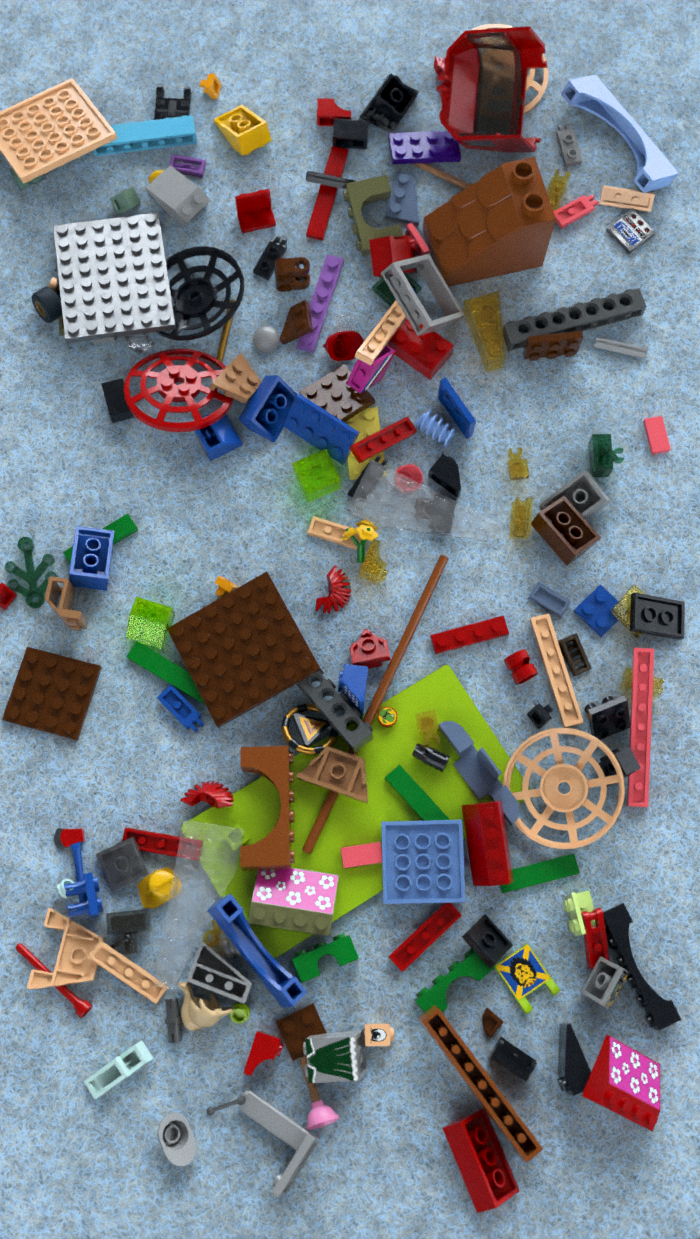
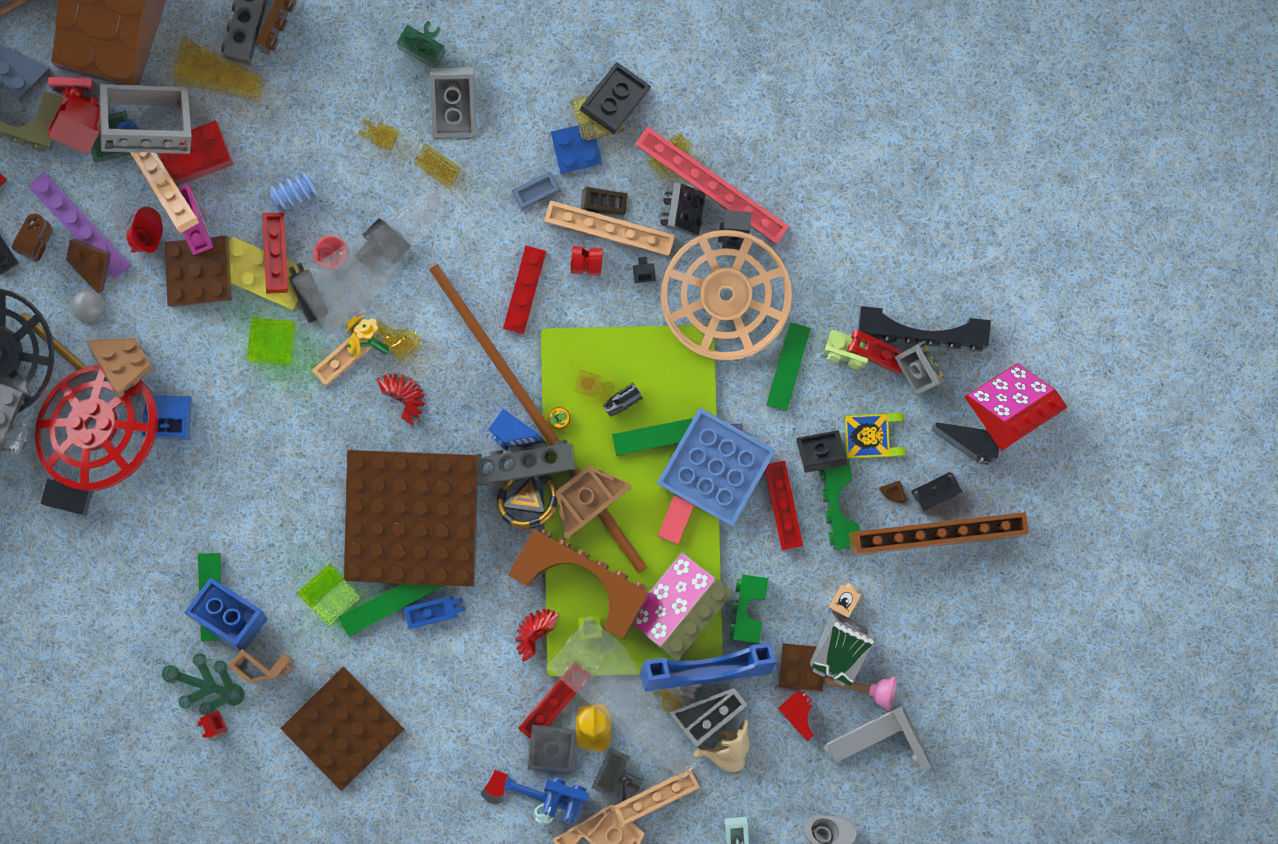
camera: 55 degrees left, 10 degrees up
(173, 1020) = (723, 779): dark grey pin -> none
(225, 586) = (334, 499): light orange tile -> none
(240, 1013) = (753, 714): lime plate -> none
(240, 1100) = (829, 757): dark grey hinge -> none
(268, 407) = (168, 346): blue slope -> none
(321, 429) = (225, 309): blue plate -> none
(369, 650) = (483, 396): plate -> none
(446, 474) = (348, 211): black slope -> none
(456, 408) = (285, 160): blue tile -> none
(479, 770) = (663, 362): sand blue piece -> none
(481, 1160) = (1003, 572): red slope -> none
(487, 843) = (734, 396): red slope -> none
(565, 530) = (477, 131): reddish brown slope -> none

